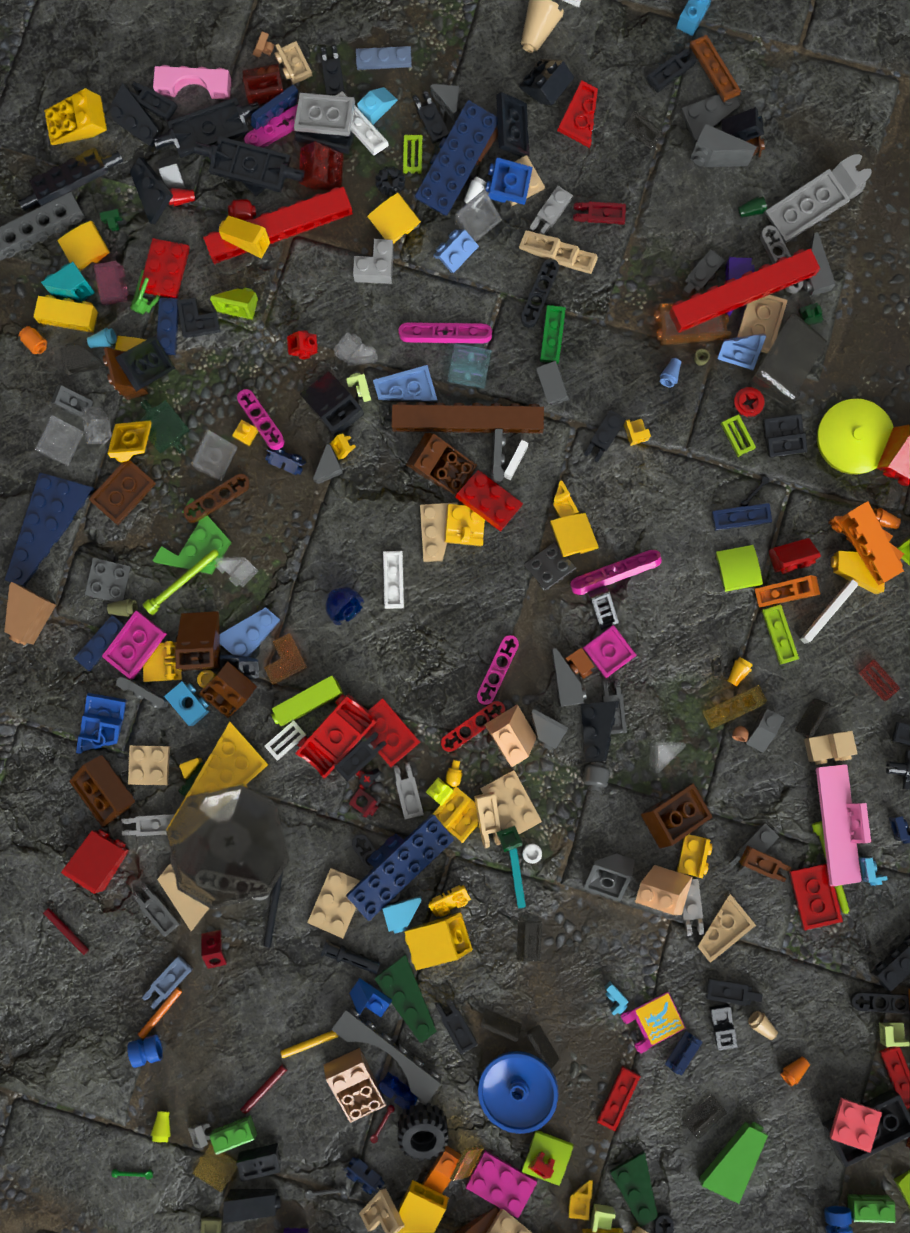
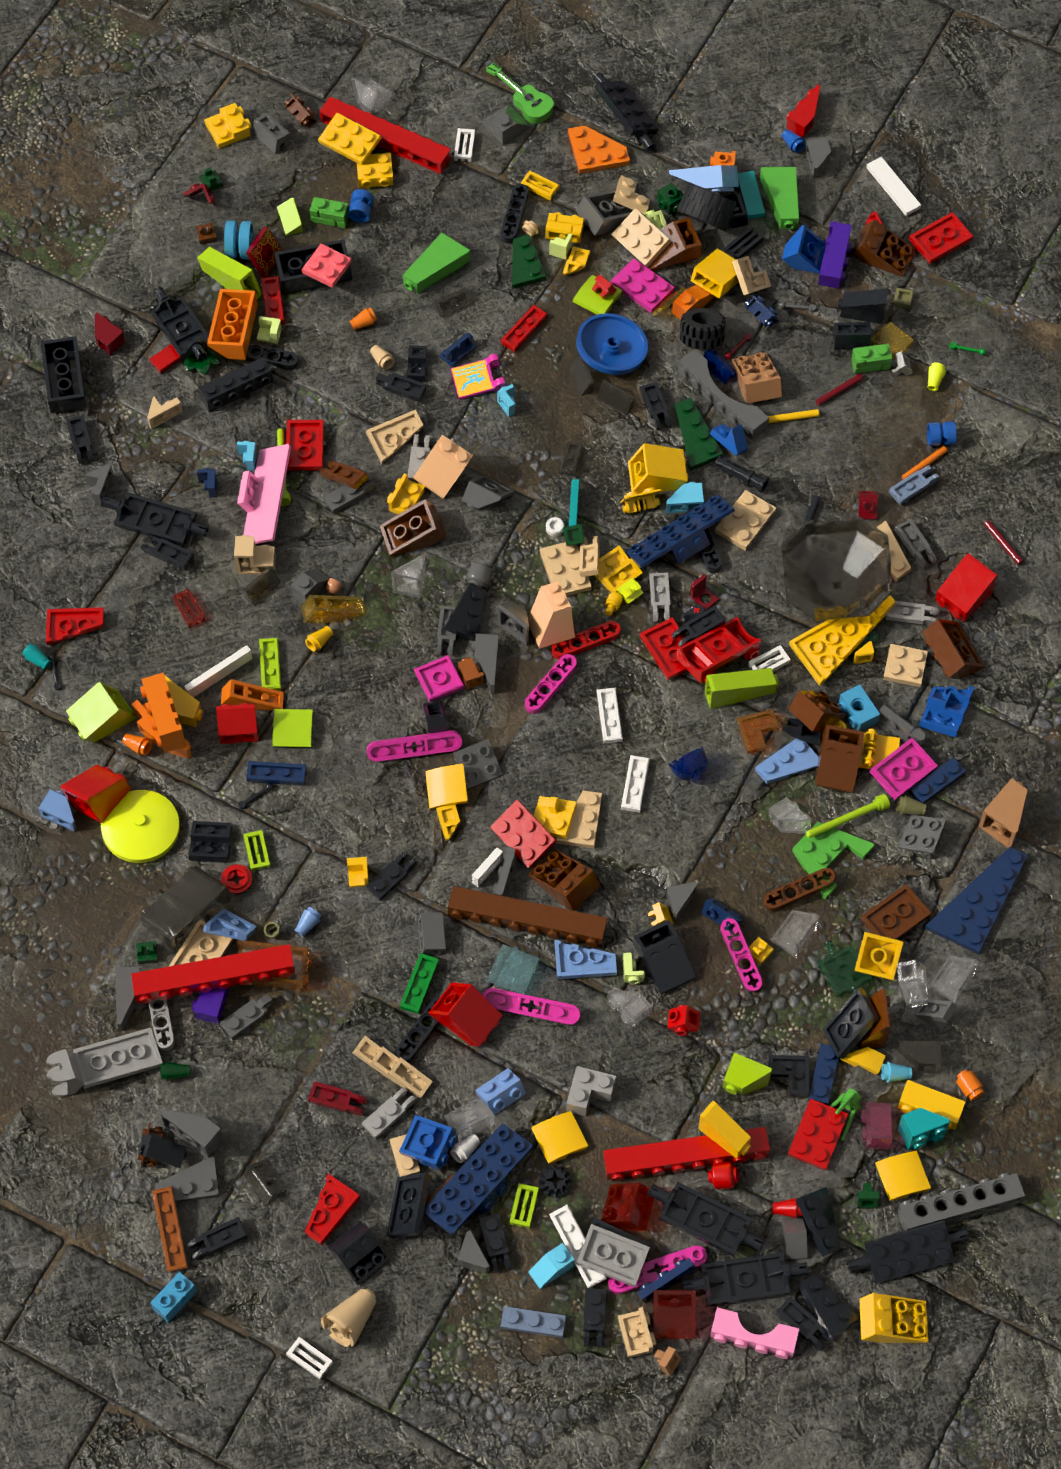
camera: 170 degrees left, 20 degrees down
(433, 648) = (609, 715): none -> white tile
(504, 308) = (466, 1013): none -> red slope

